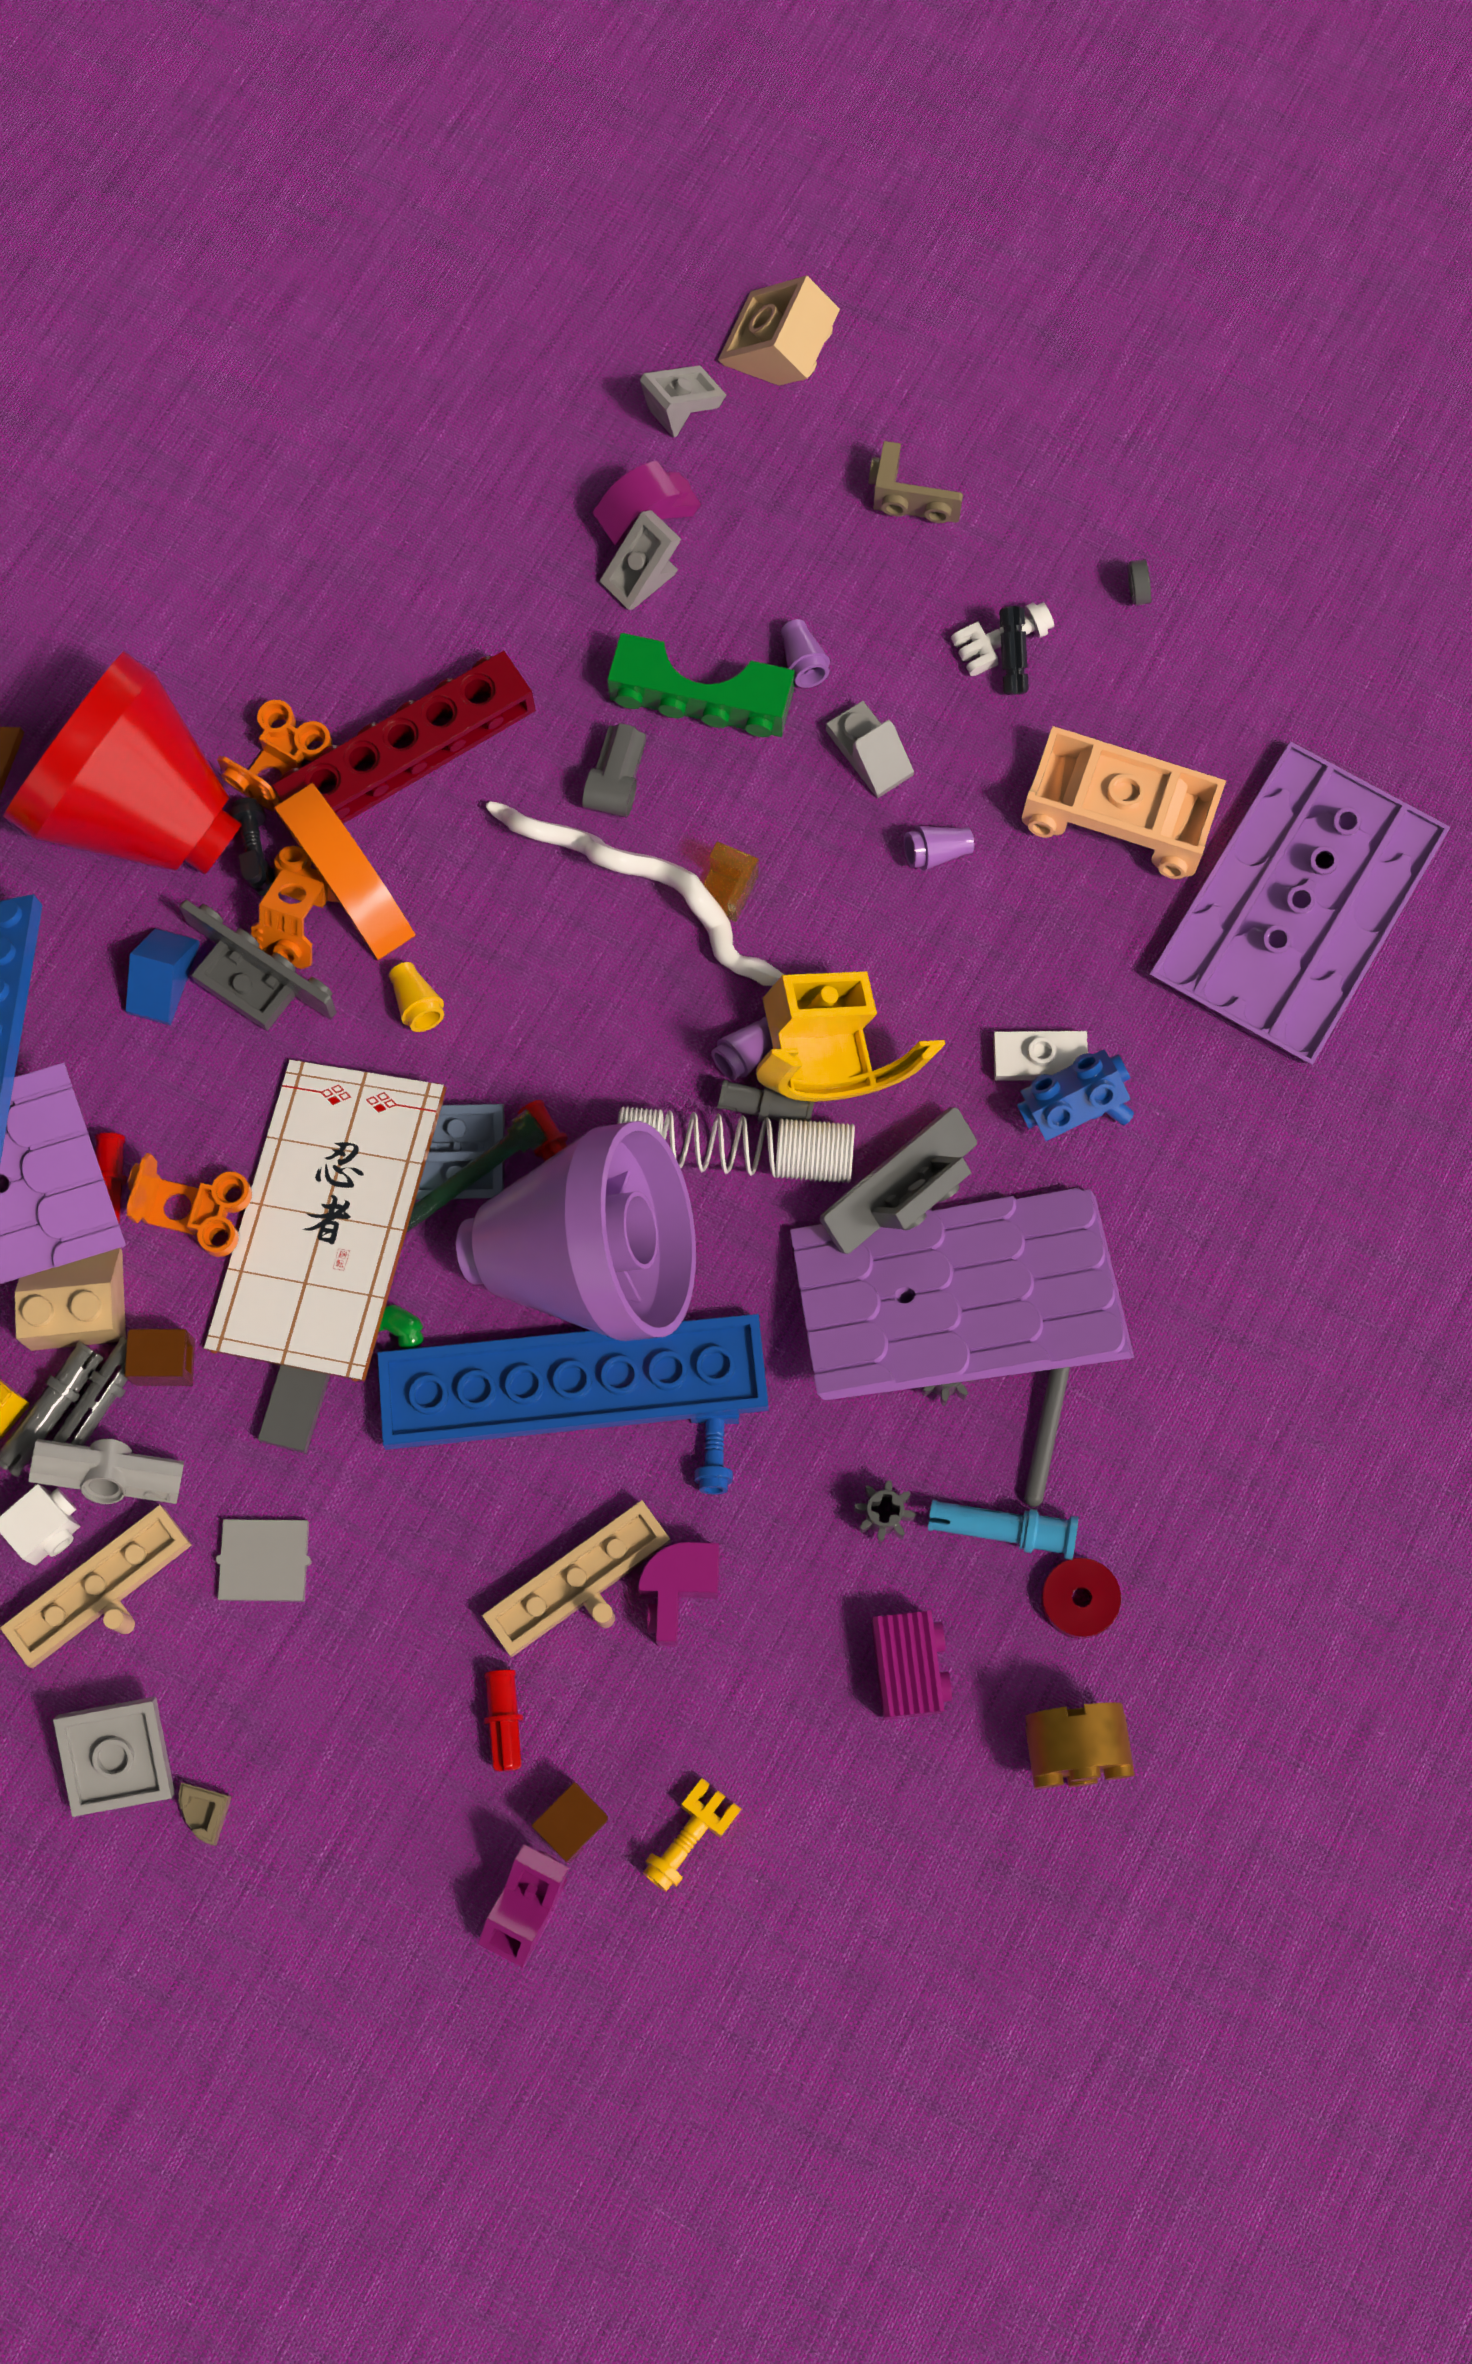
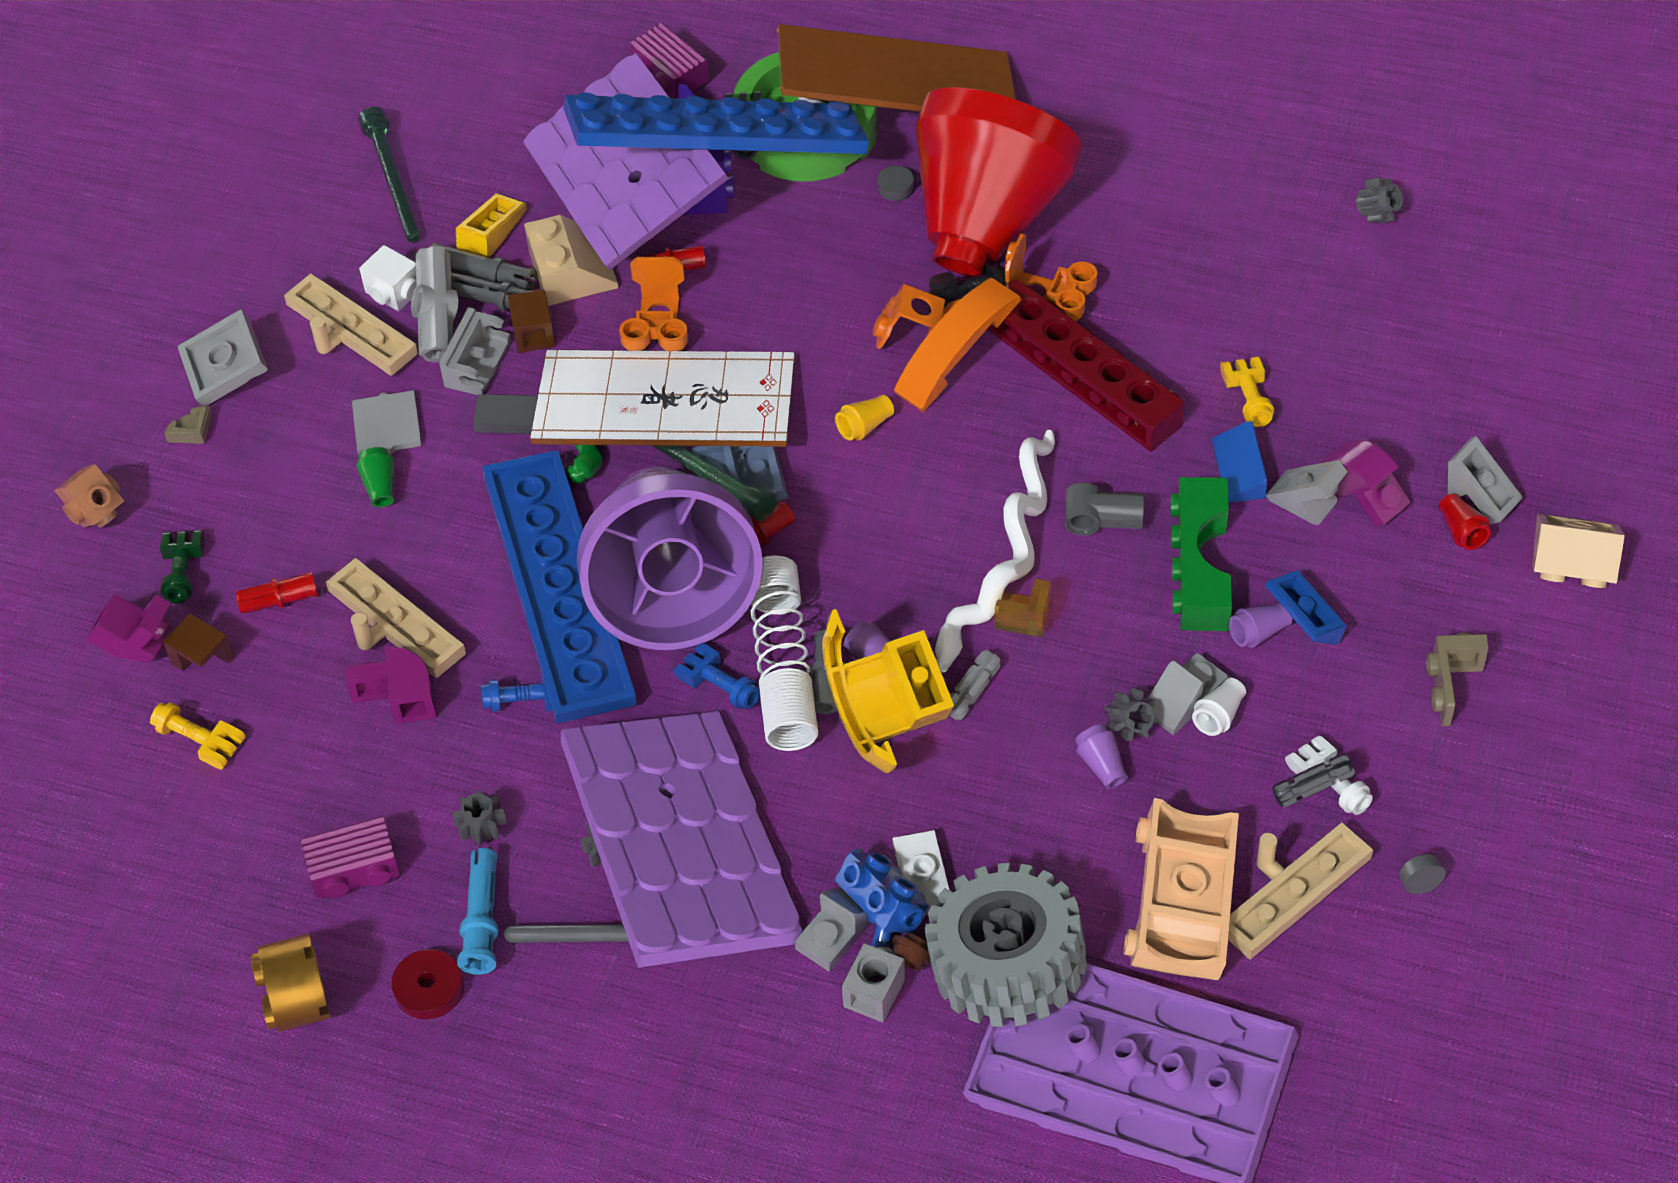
camera: 80 degrees right, 20 degrees down
(58, 895) = (895, 183): none -> dark grey tile
(159, 975) = (846, 255): blue slope -> none
(191, 1434) = (474, 353): none -> light grey hinge
(247, 976) = (853, 306): dark grey bracket -> none
(257, 386) = (1379, 200): none -> dark grey gear
(303, 1947) = (90, 497): none -> nougat brick
(356, 1577) = (377, 475): none -> green cone
(458, 588) = (1258, 408): none -> yellow hinge
(467, 1845) = (177, 586): none -> dark green hinge
(582, 620) = (1240, 462): none -> blue slope
(719, 427) = (1465, 523): none -> red cone
(774, 1197) = (742, 692): none -> blue hinge
(799, 601) = (1307, 608): none -> blue slope
(806, 950) = (973, 683): none -> light grey axle
(897, 803) = (1142, 717): none -> dark grey gear
(904, 1184) = (772, 776): dark grey bracket -> none
(908, 719) = (1217, 709): none -> white cone
(1092, 1157) = (833, 929): none -> light grey slope
(1130, 697) = (1296, 888): none -> tan plate
(1142, 1082) = (912, 949): none -> copper plate
(1171, 1145) = (868, 997): none -> light grey brick
(1207, 1011) = (1005, 972): none -> light grey wheel

